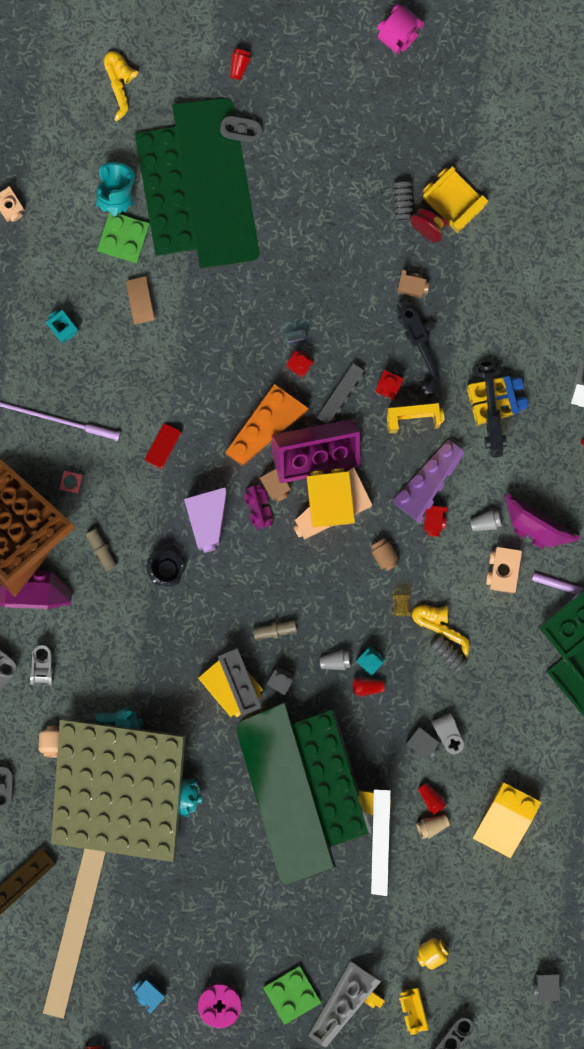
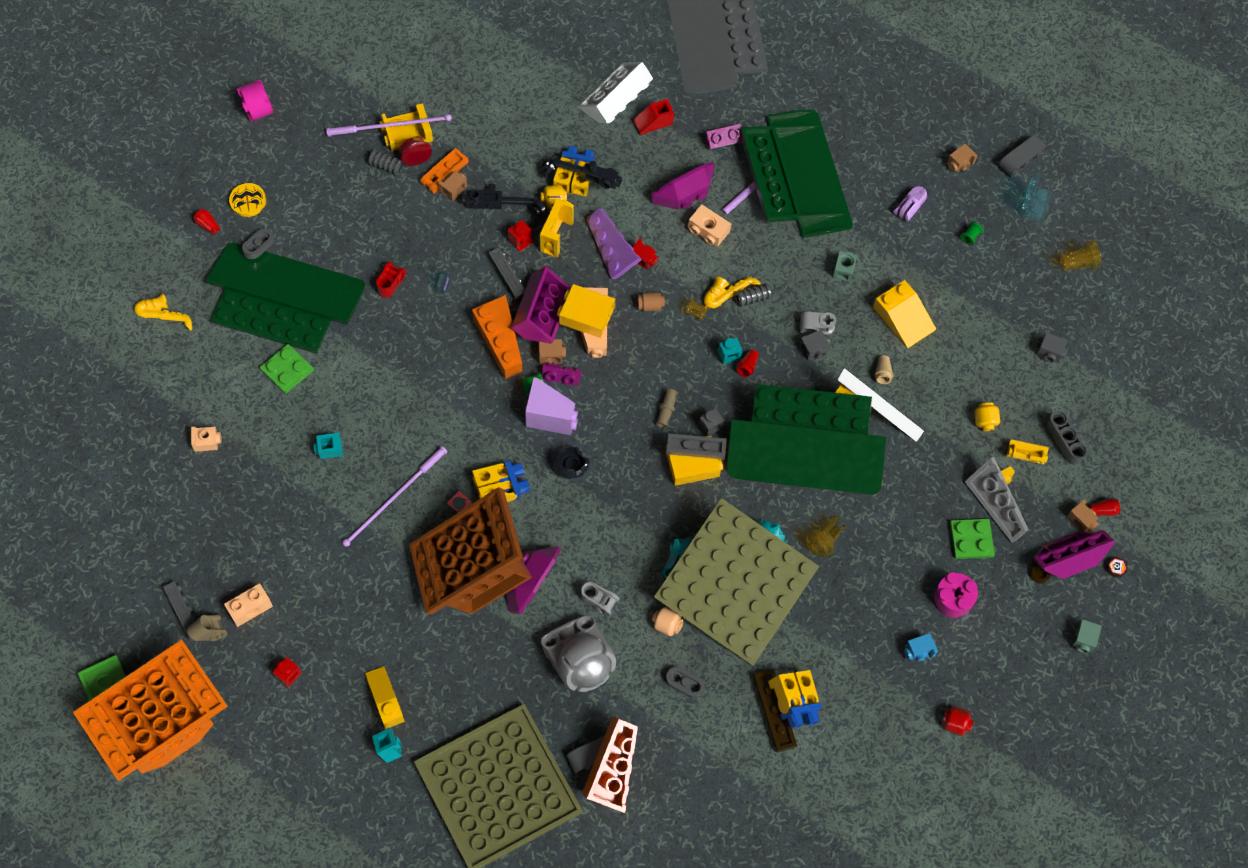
camera: 65 degrees left, 20 degrees down
(36, 900) = (797, 698): none -> yellow hips
(74, 933) = (839, 685): tan tile -> none
(101, 549) = (528, 506): dark tan pin -> none
(111, 516) = (501, 476): none -> yellow hips
(115, 190) = (244, 349): teal hat -> none
(140, 300) = (346, 378): medium nougat slope -> none
(163, 446) = (472, 419): red slope -> none
(216, 852) = (821, 541): none -> clear yellow piece
(233, 484) = (527, 381): none -> green bush
(273, 281) = (391, 277): none -> red piece
(286, 88) = (247, 199): none -> yellow tile
(300, 363) = (464, 286): red brick -> none
(336, 661) = (716, 374): light grey cone -> none
(410, 124) = (353, 129): none -> lavender piece
(426, 265) = (447, 166): none -> orange plate
(432, 799) = (862, 360): red cone -> none
(453, 393) = (552, 193): none -> yellow head
(487, 521) = (664, 220): light grey cone -> none
(522, 730) = (843, 272): none -> sand green brick

